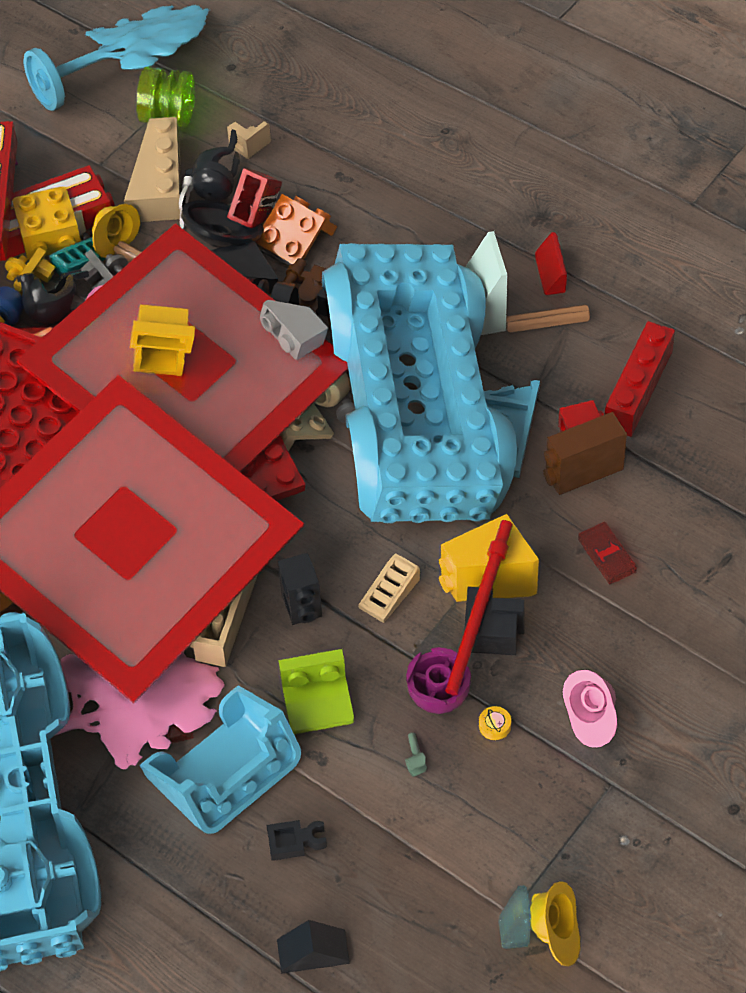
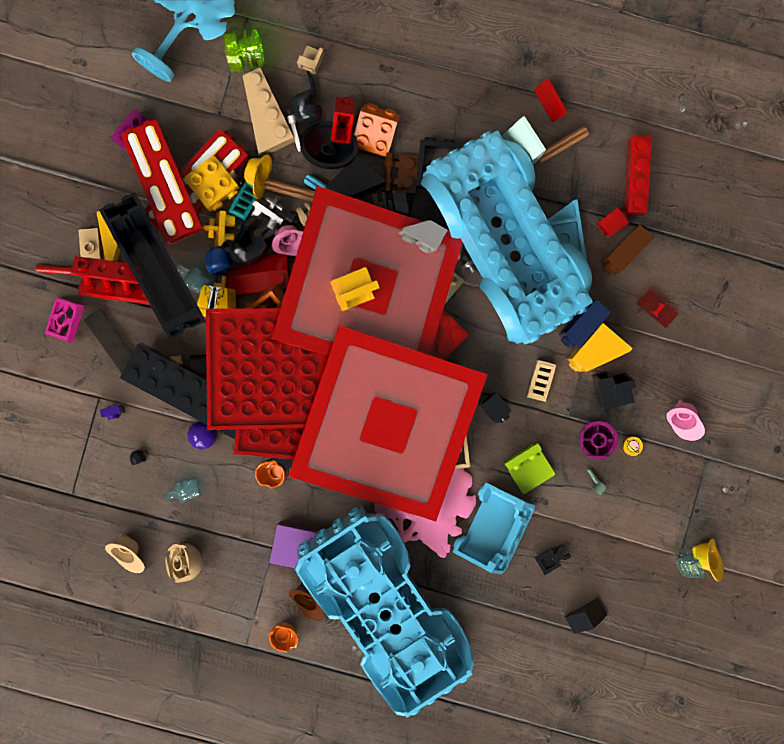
camera: 25 degrees left, 35 degrees up
(482, 510) = (583, 325): none -> dark blue window
(497, 553) = (609, 355): red bar -> none

